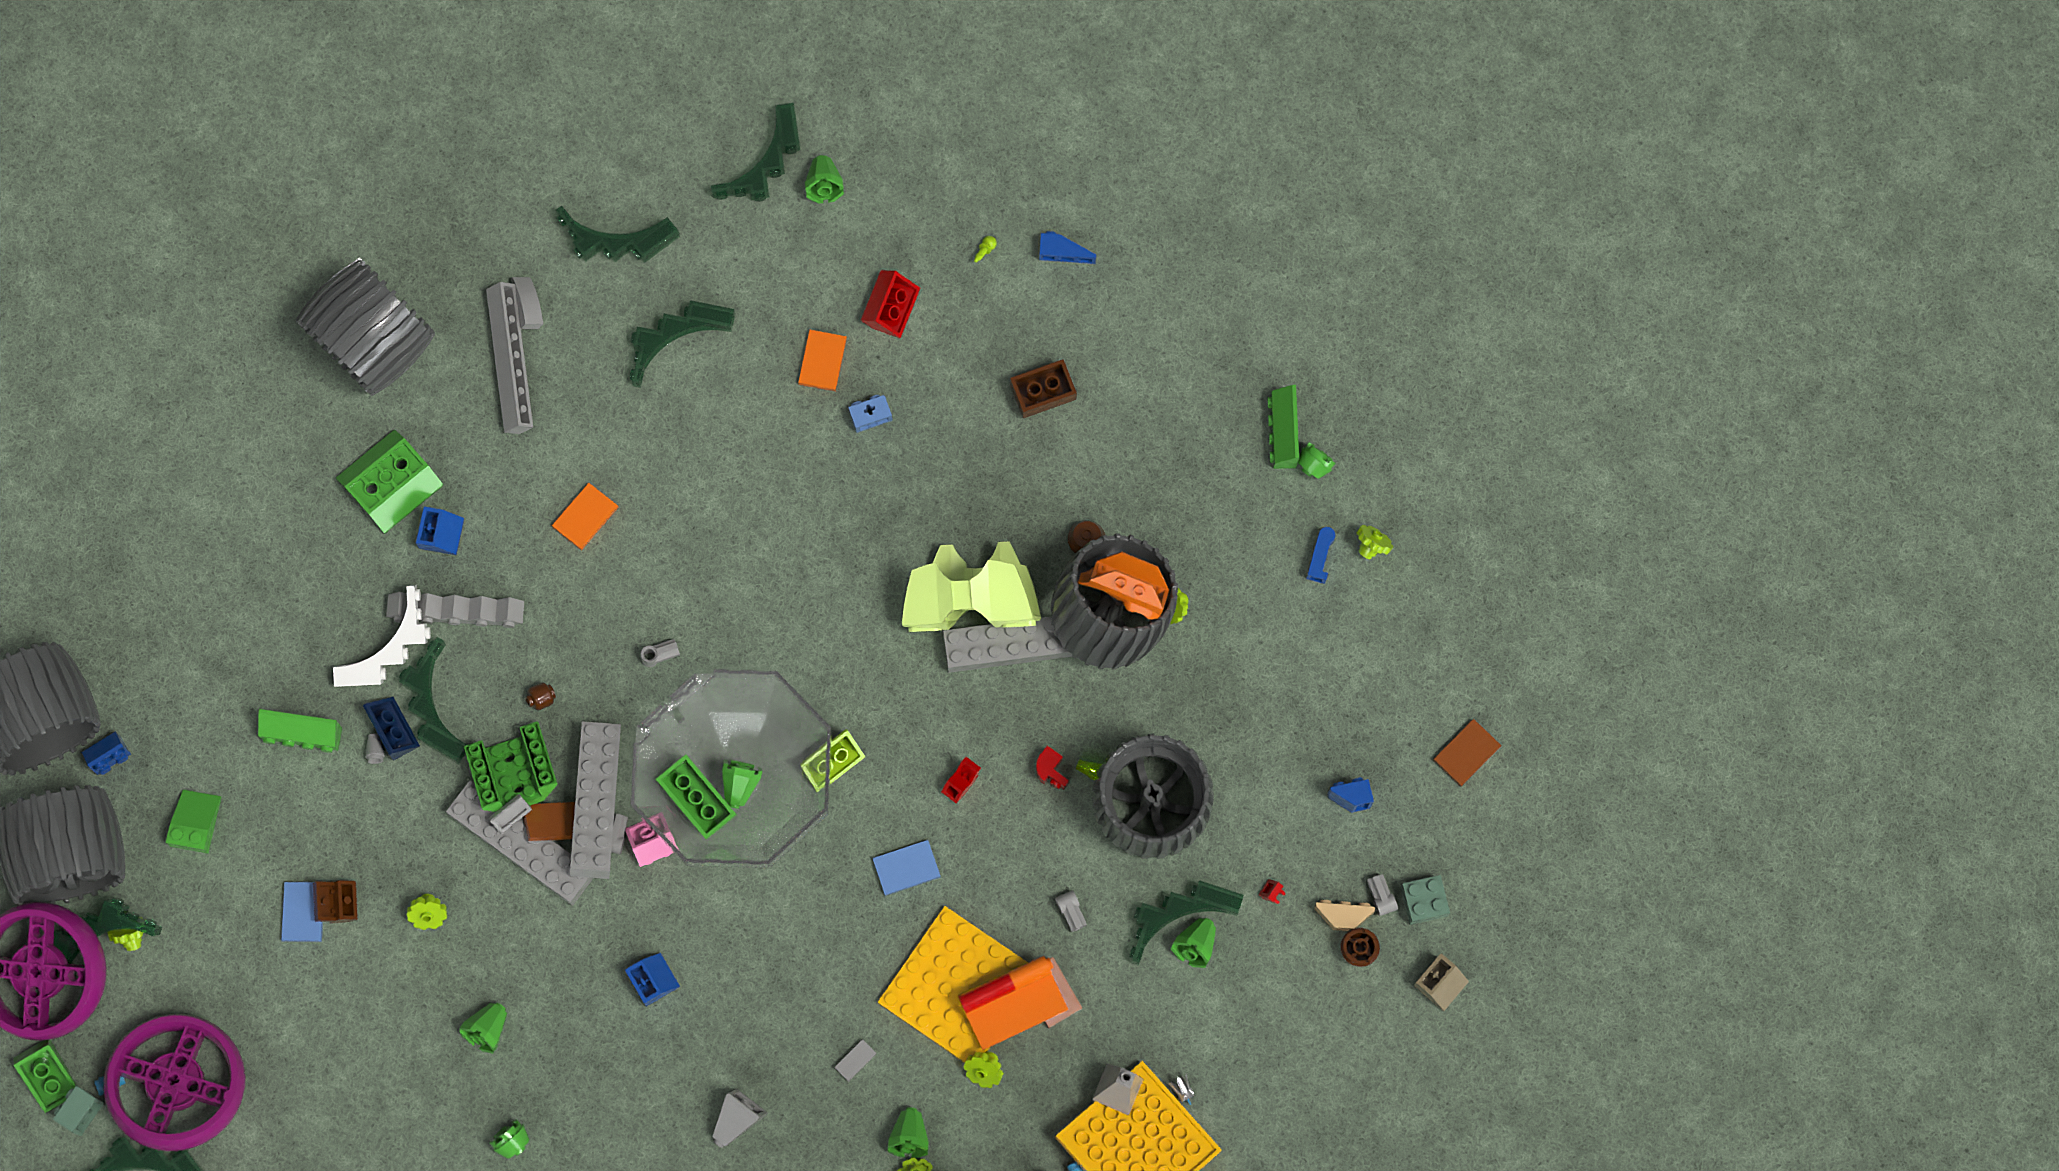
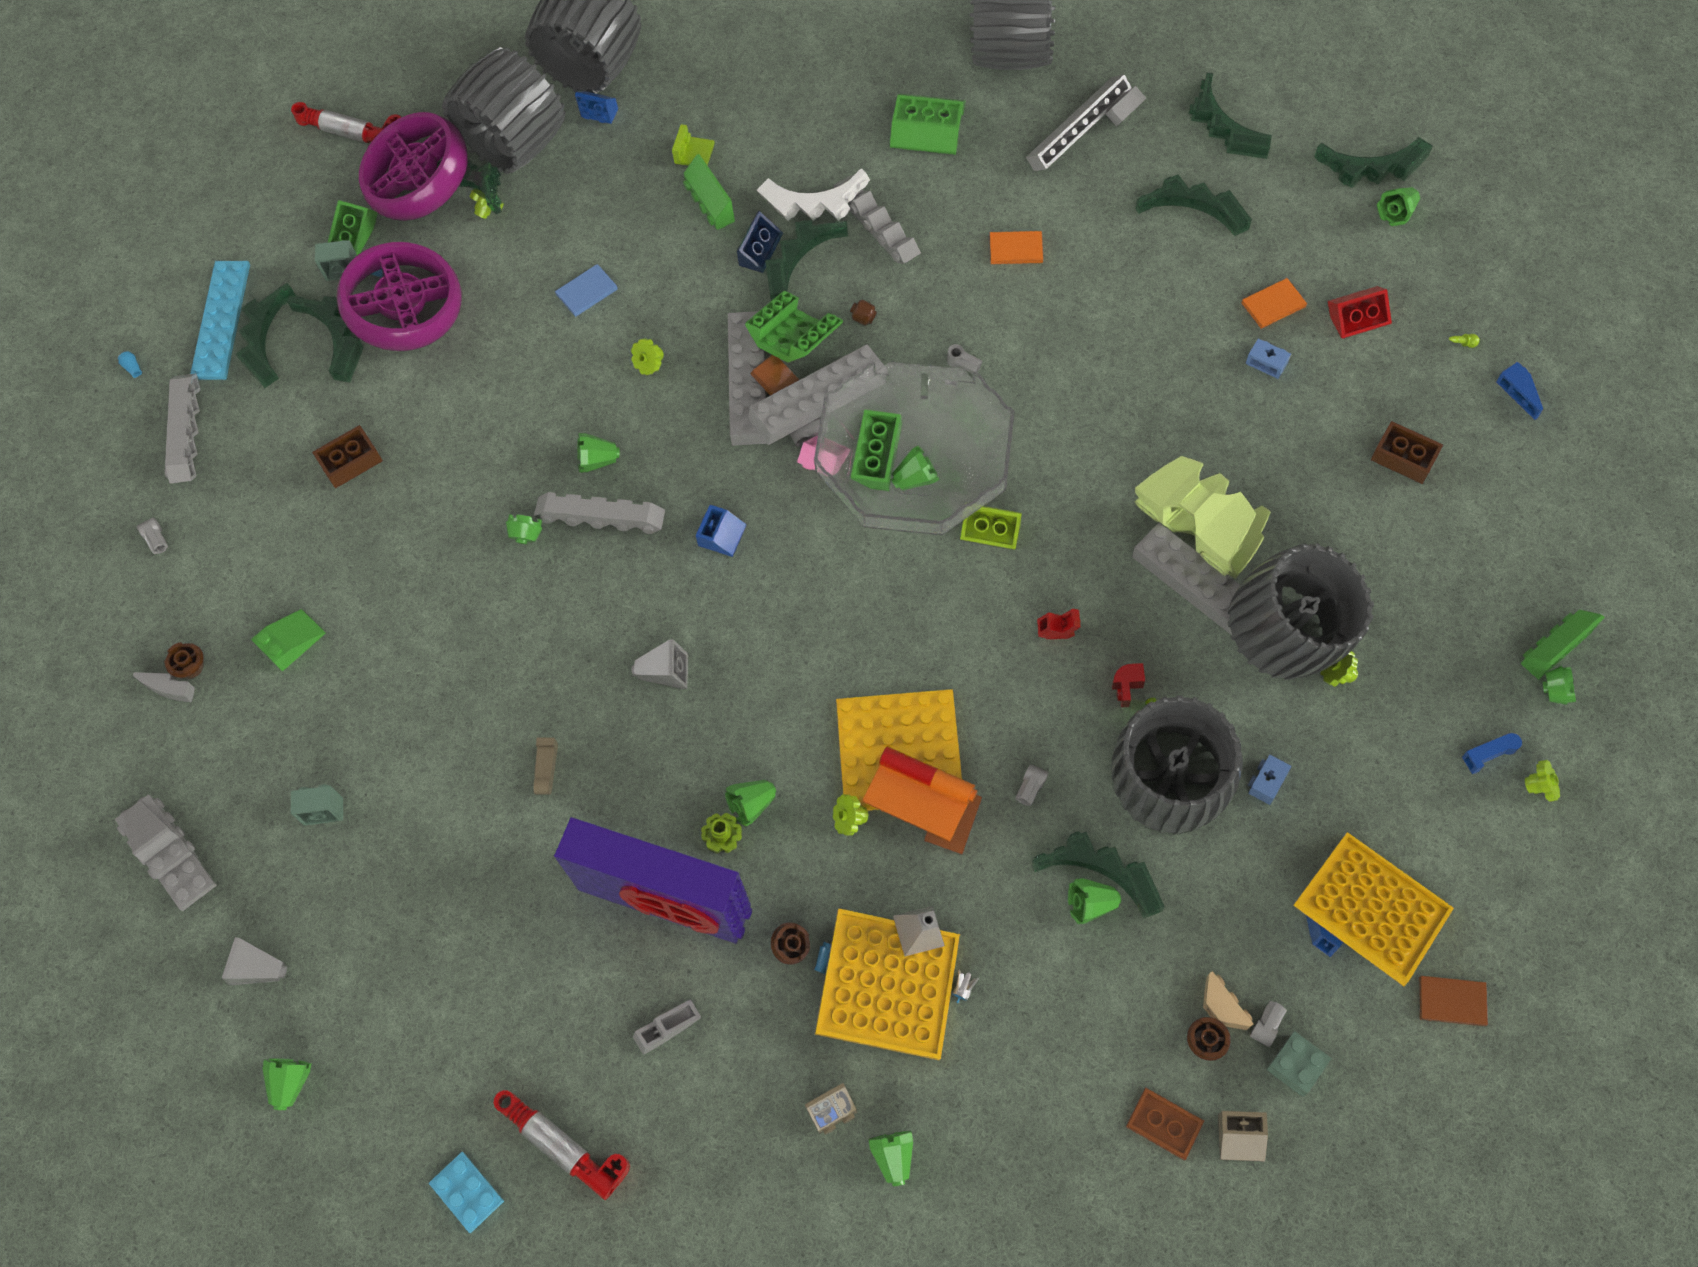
camera: 60 degrees right, 10 degrees down
(193, 821) = (593, 185): bright green slope -> none
(234, 705) = (687, 147): none -> lime bracket
(335, 901) = (607, 299): reddish brown brick -> none
(374, 749) = (731, 248): light grey cone -> none
(439, 531) = (921, 171): blue slope -> none
(510, 813) = (758, 346): light grey tile -> none
(548, 1066) = (599, 512): none -> light grey brick
(855, 1060) = (778, 718): light grey tile -> none
(906, 867) = (957, 641): medium blue tile -> none
(1130, 581) = (1328, 602): orange slope -> none
(1211, 722) = (1264, 789): none -> medium blue brick
(1271, 891) = (1188, 927): red tile -> none
(1365, 749) = (1374, 908): none -> yellow plate
(1390, 1028) = (1165, 1124): none -> dark orange tile

